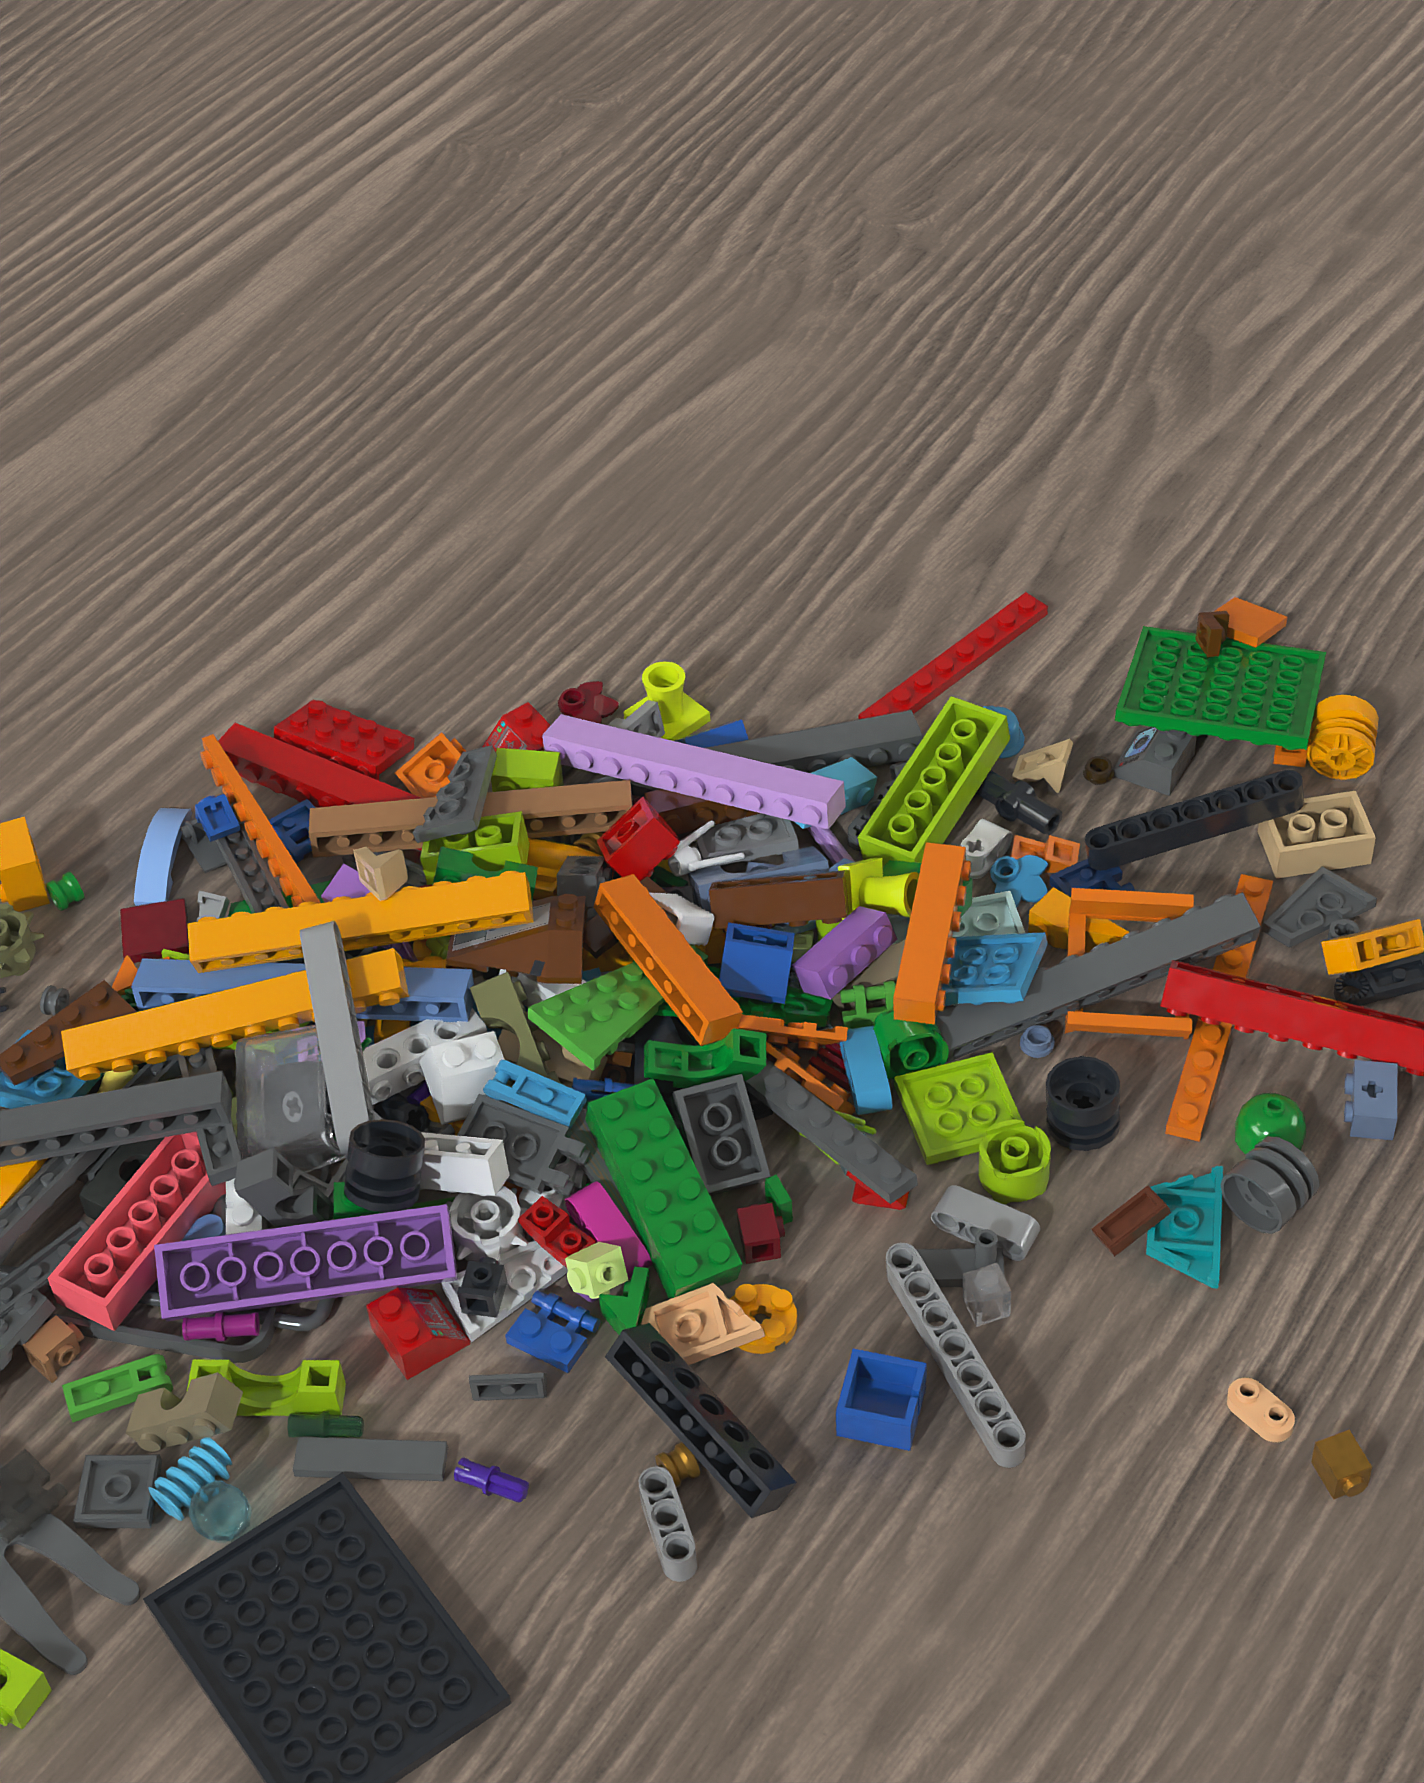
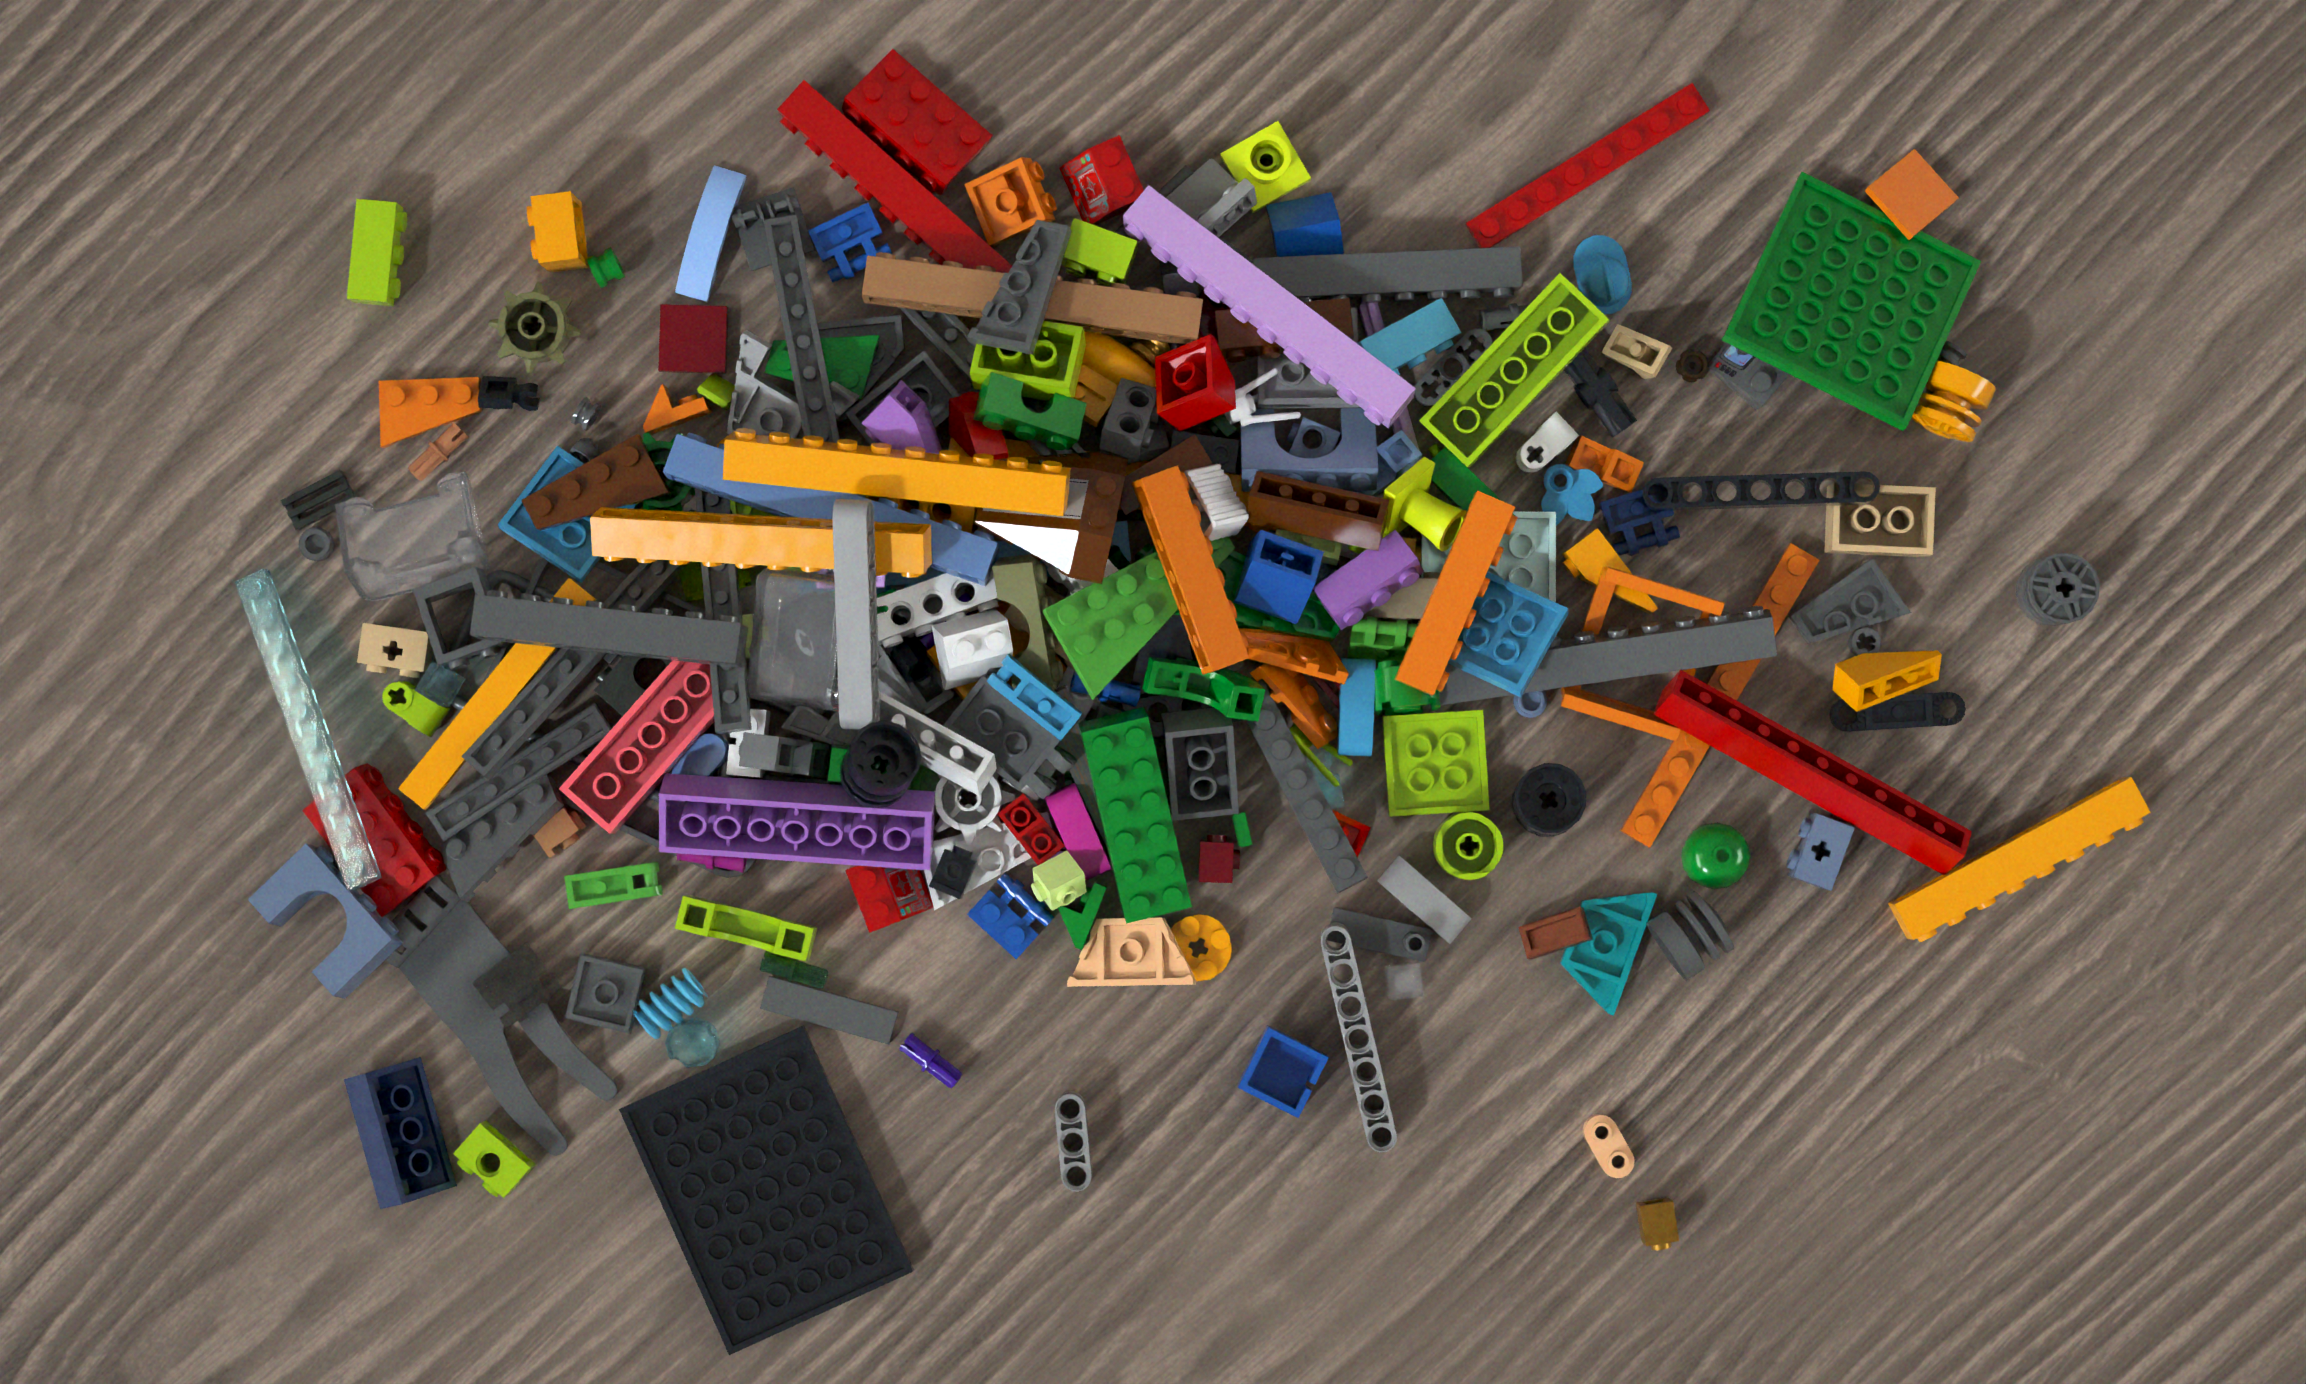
camera: 15 degrees right, 40 degrees up
(167, 1421) = (649, 939): dark tan arch -> none
(216, 817) = (769, 229): blue bracket -> none
(256, 823) = (811, 263): orange plate -> none
(381, 873) = (924, 440): tan slope -> none
(508, 1386) = (962, 962): dark grey slope -> none
(587, 702) = (1190, 129): dark red plate -> none
(679, 1463) = (1093, 1086): pearl gold wheel -> none
(700, 1420) = (1120, 1058): black brick -> none
(1212, 631) = (1864, 218): reddish brown bracket -> none

